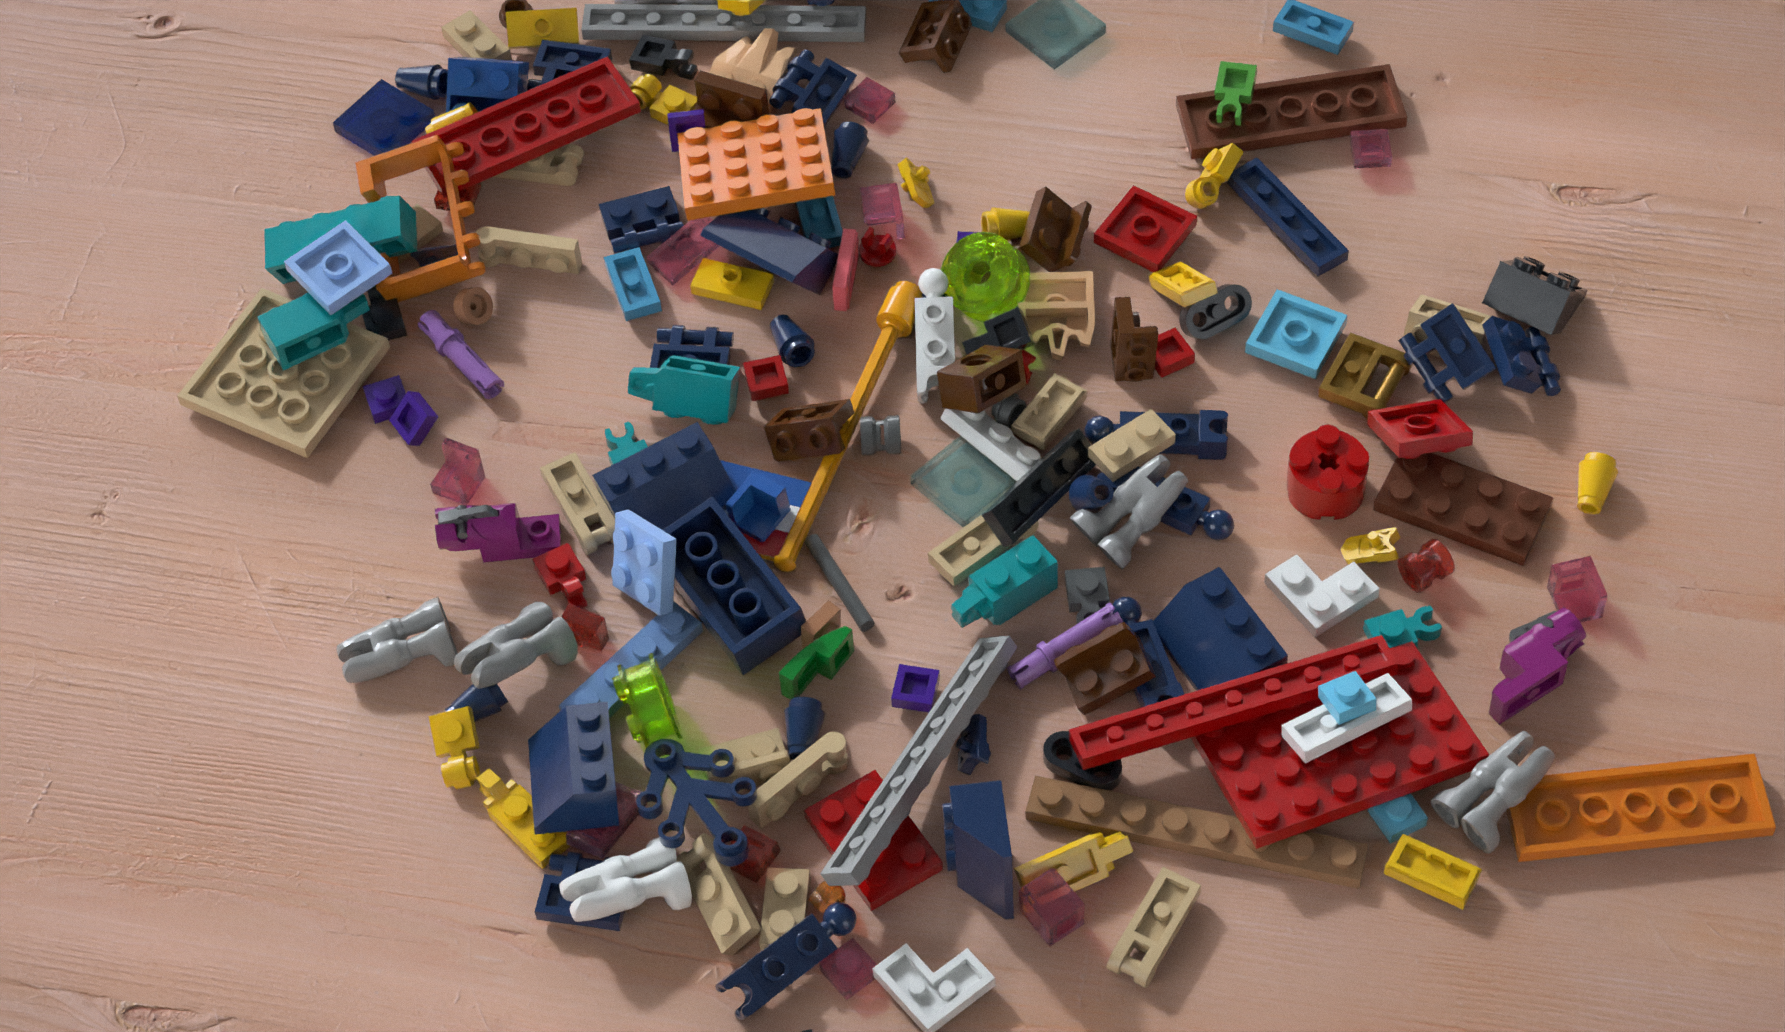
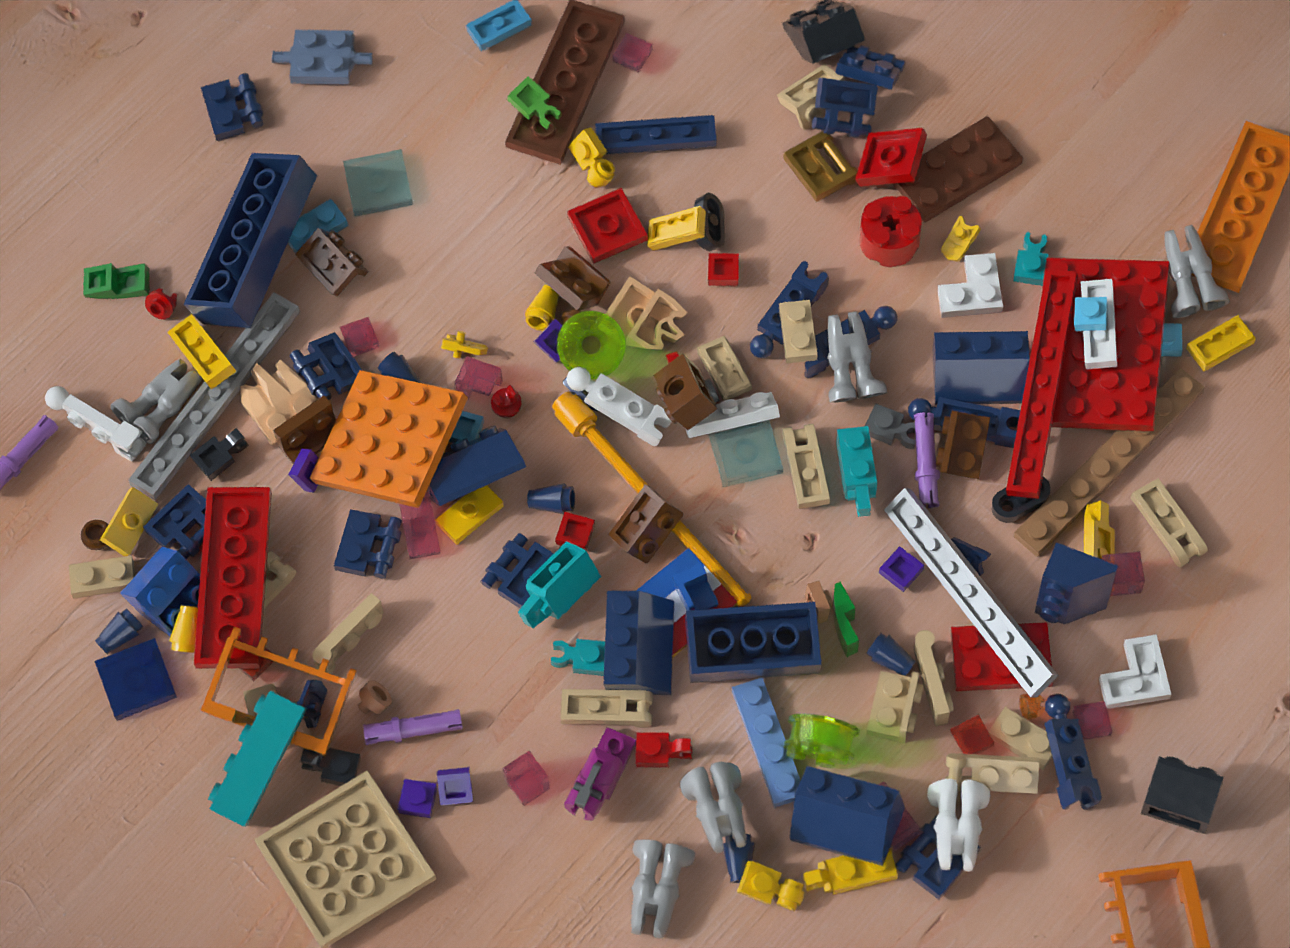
camera: 60 degrees left, 10 degrees up
(306, 329) = (326, 816): teal hinge -> none
(338, 267) = (305, 767): light blue plate -> none
(587, 627) = (722, 752): clear red plate -> none
(632, 284) = (427, 578): dark azure plate -> none
(644, 562) = (704, 685): light blue plate -> none
(671, 100) = (268, 470): yellow plate -> none
(695, 793) = (916, 746): dark blue plant -> none
(839, 582) = (779, 573): dark grey bar -> none
(845, 270) = (519, 433): coral tile -> none
(871, 435) = (676, 484): dark grey wheel -> none
(1004, 330) = (649, 358): black plate -> none
(1039, 488) = (796, 405): black plate -> none
(1083, 496) = (821, 377): dark blue cone -> none
(1131, 346) = (708, 288): reddish brown bracket -> none
(1296, 334) = (759, 185): medium azure plate -> none
(1426, 565) = (995, 214): clear red wheel -> none
(1535, 662) = (1105, 197): magenta plate -> none
(1578, 588) = (1068, 144): clear pink panel -> none
(1595, 481) = (991, 85): yellow cone -> none

